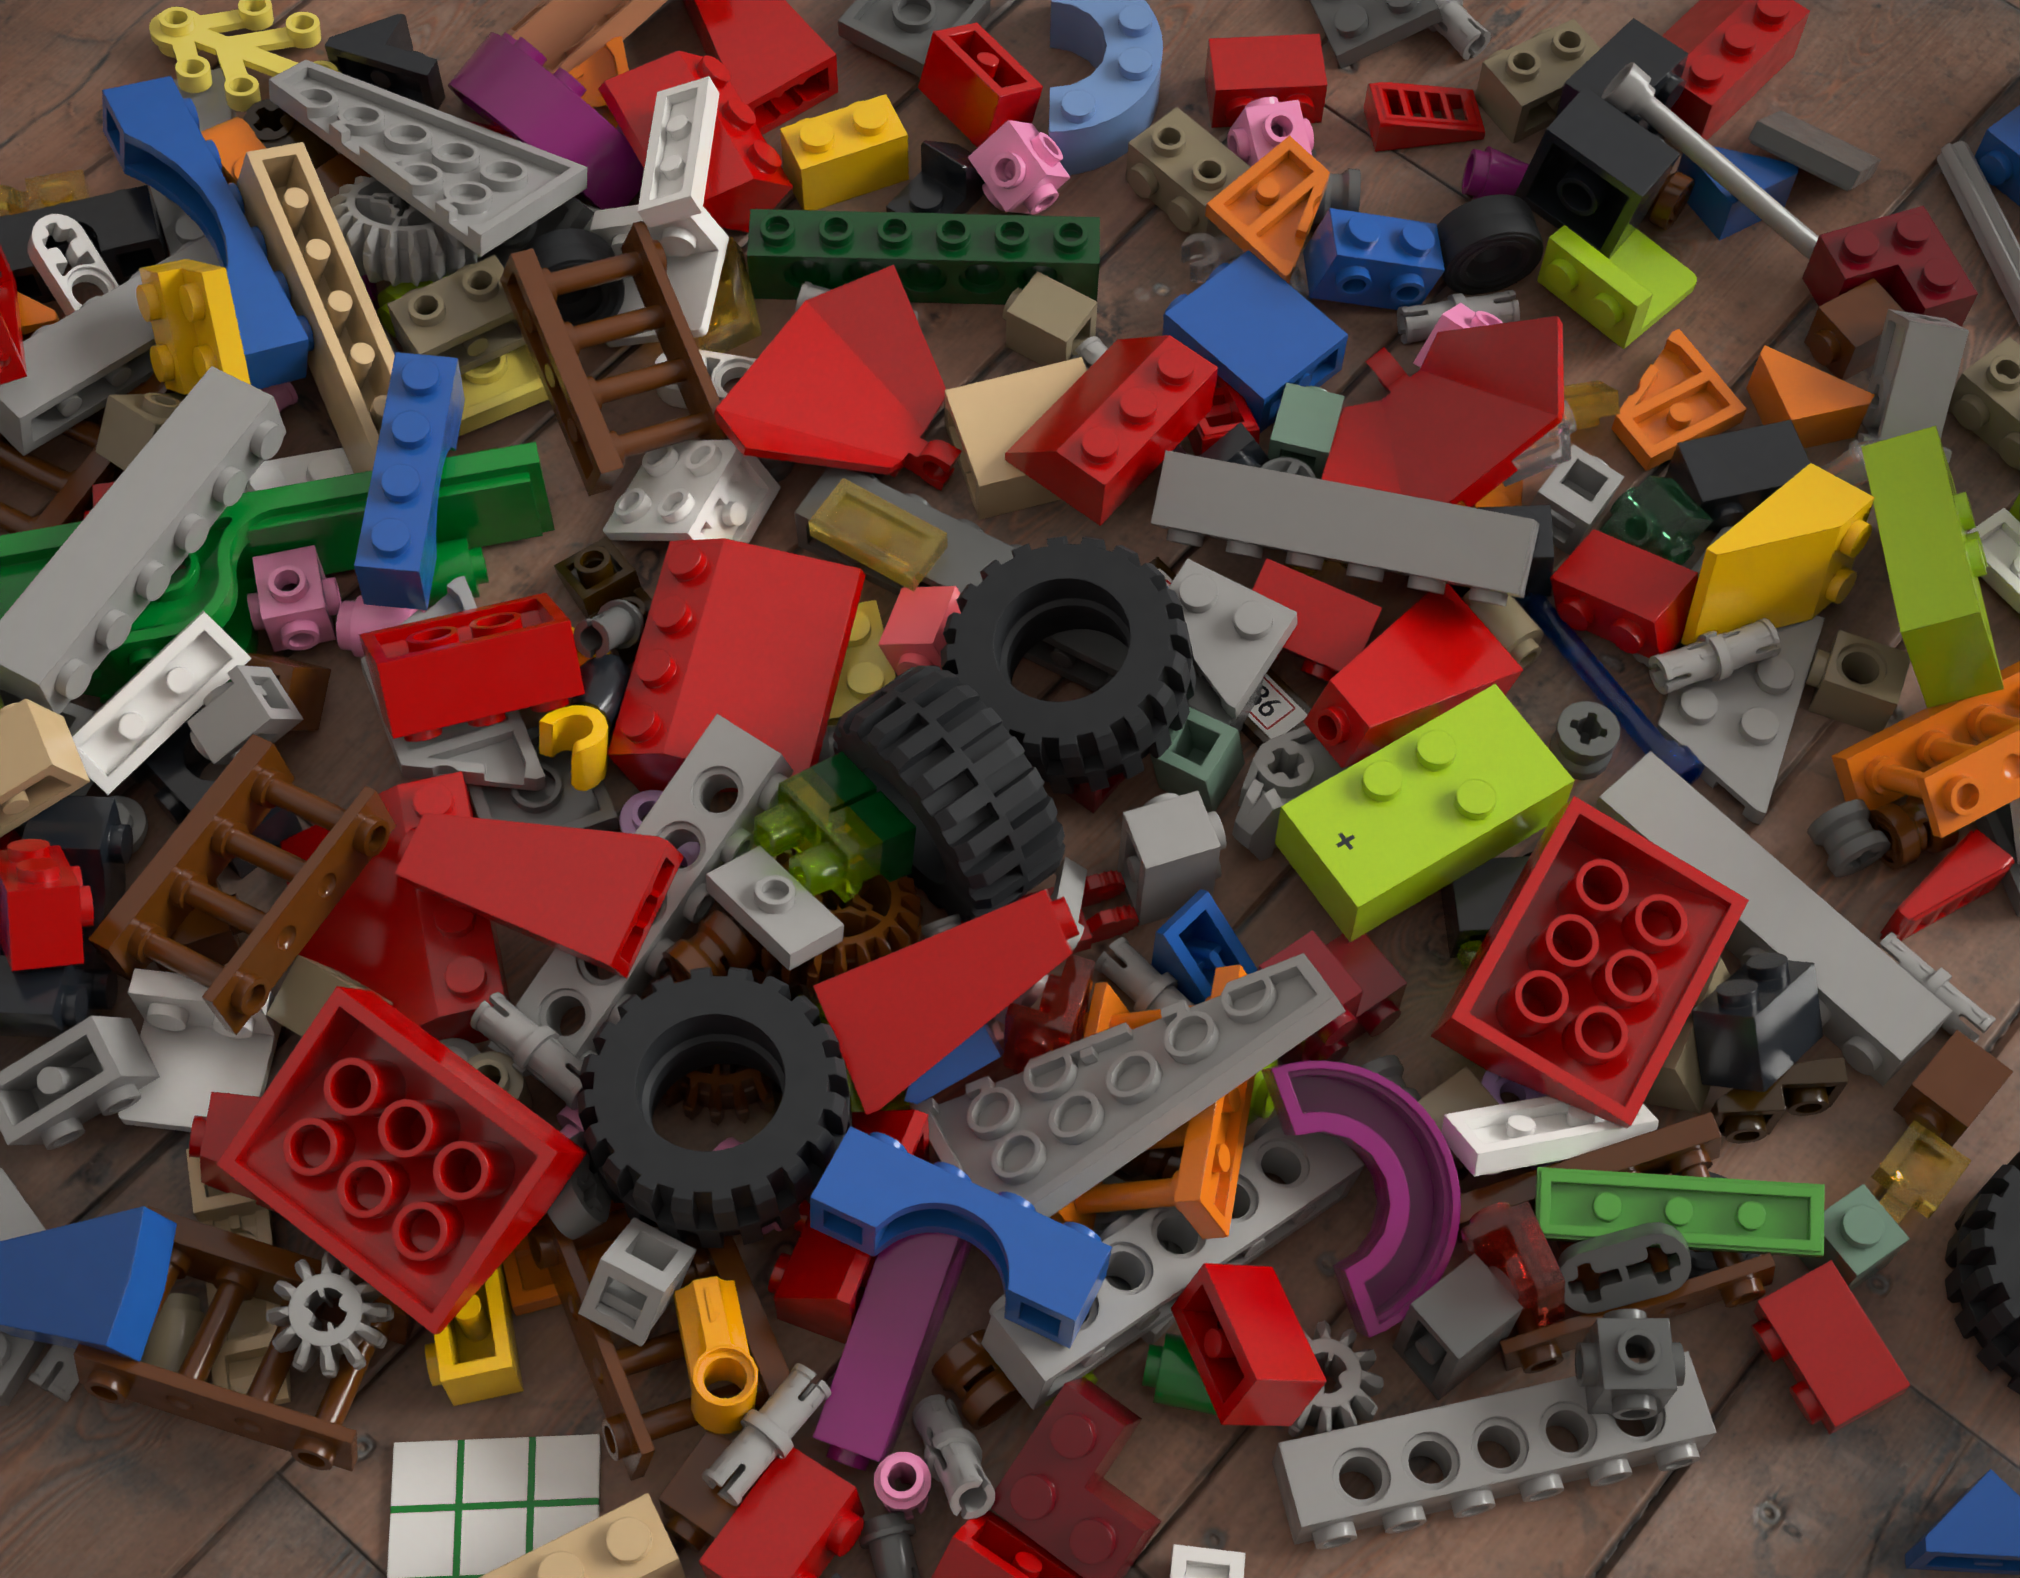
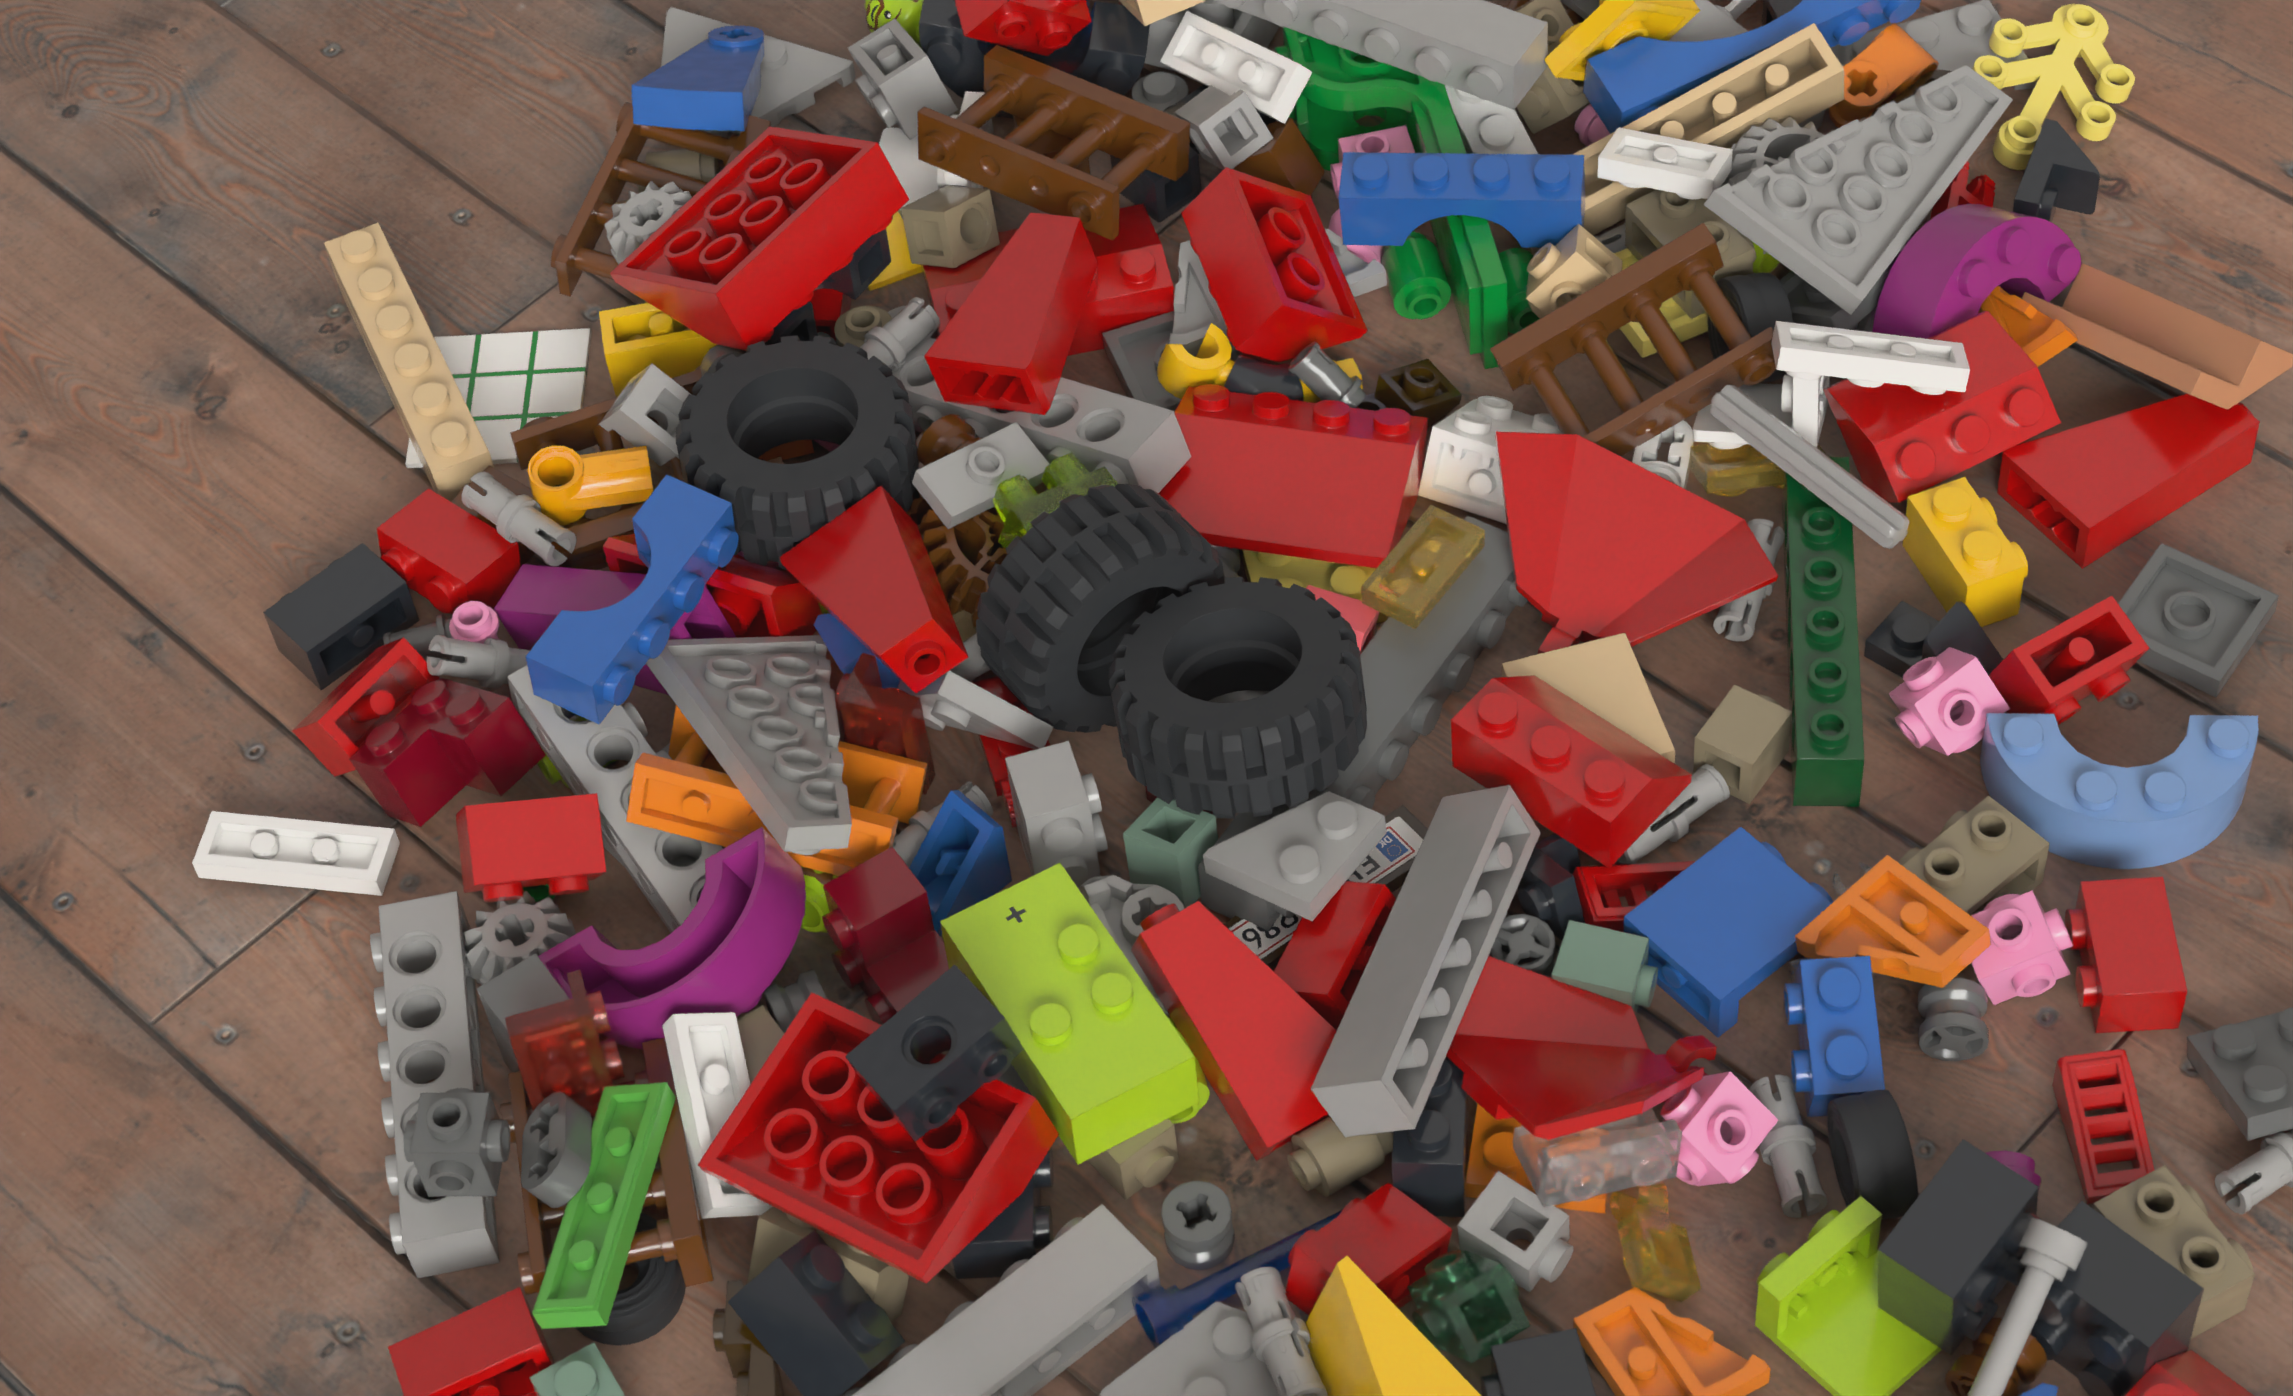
camera: 100 degrees right, 10 degrees down
(395, 300) = (1664, 163): none -> white plate
(509, 405) = (1568, 270): none -> tan brick
(779, 224) = (1810, 466): none -> light grey axle
(1552, 907) = (940, 1019): none -> black brick

